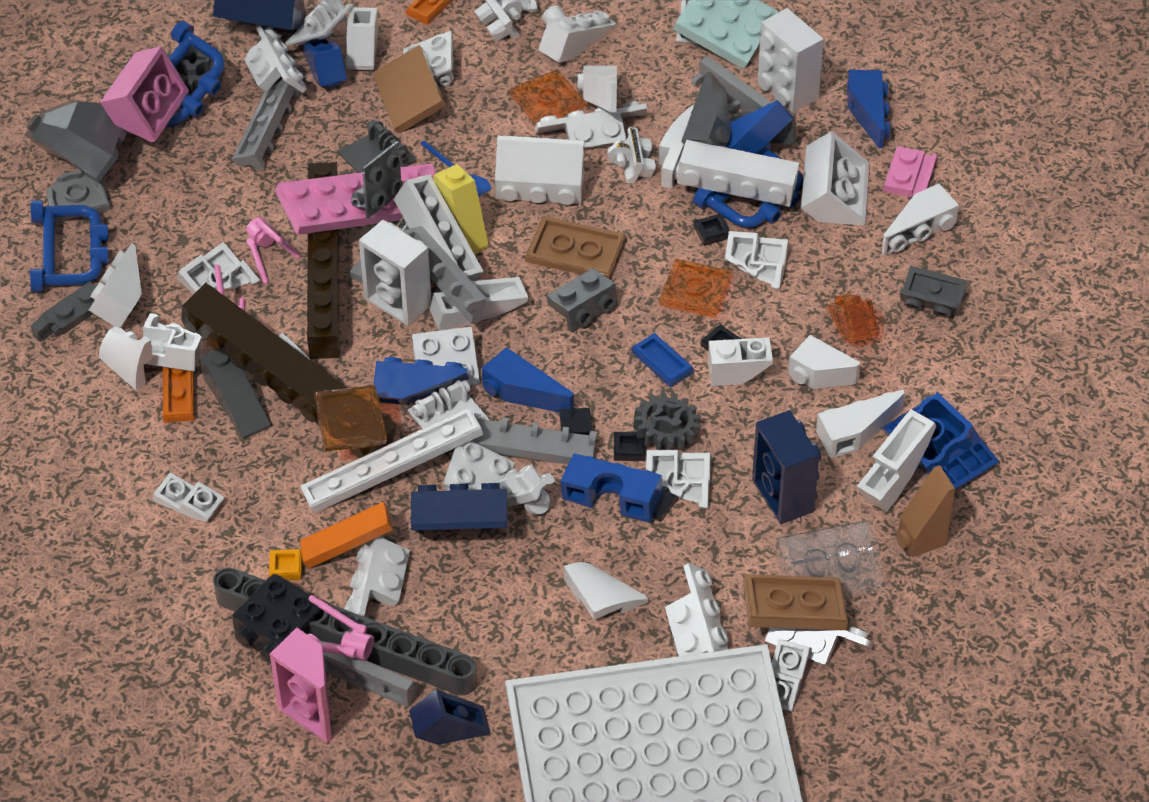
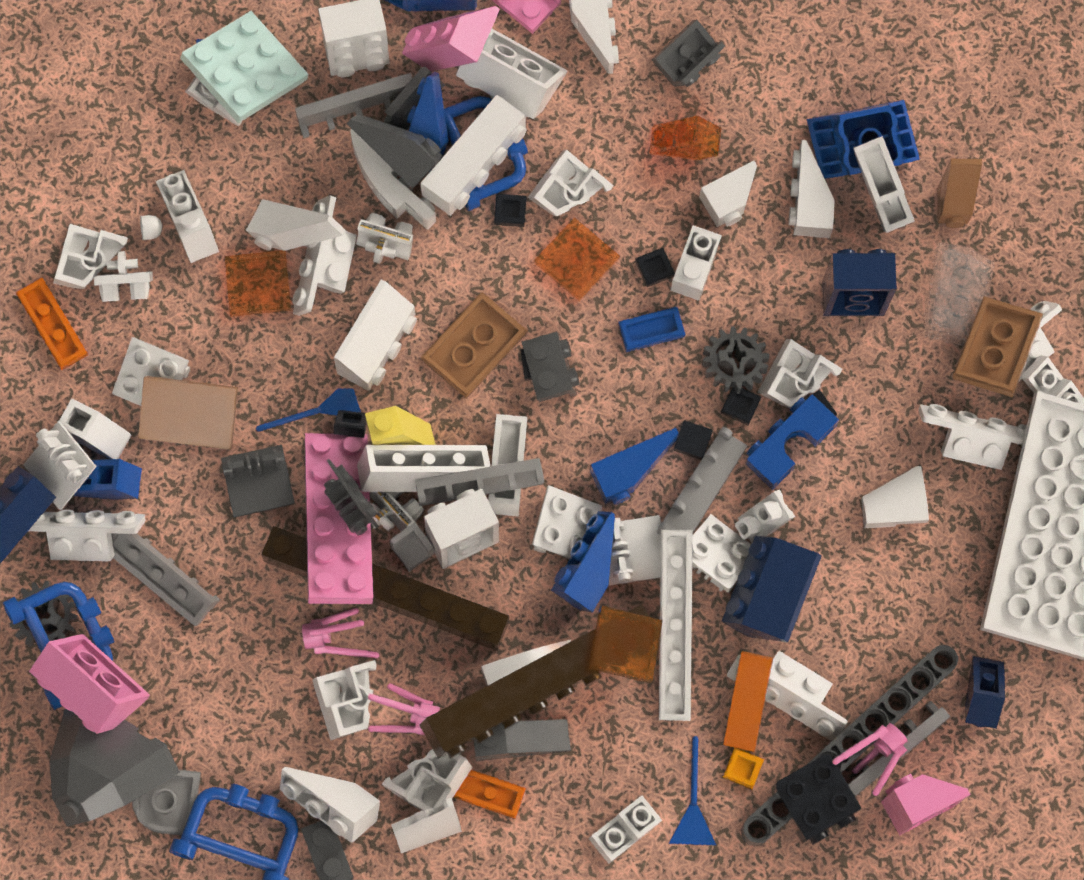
camera: 70 degrees left, 25 degrees up
(213, 549) = (693, 826): none -> blue piece
(834, 112) = (450, 40): none -> bright pink slope

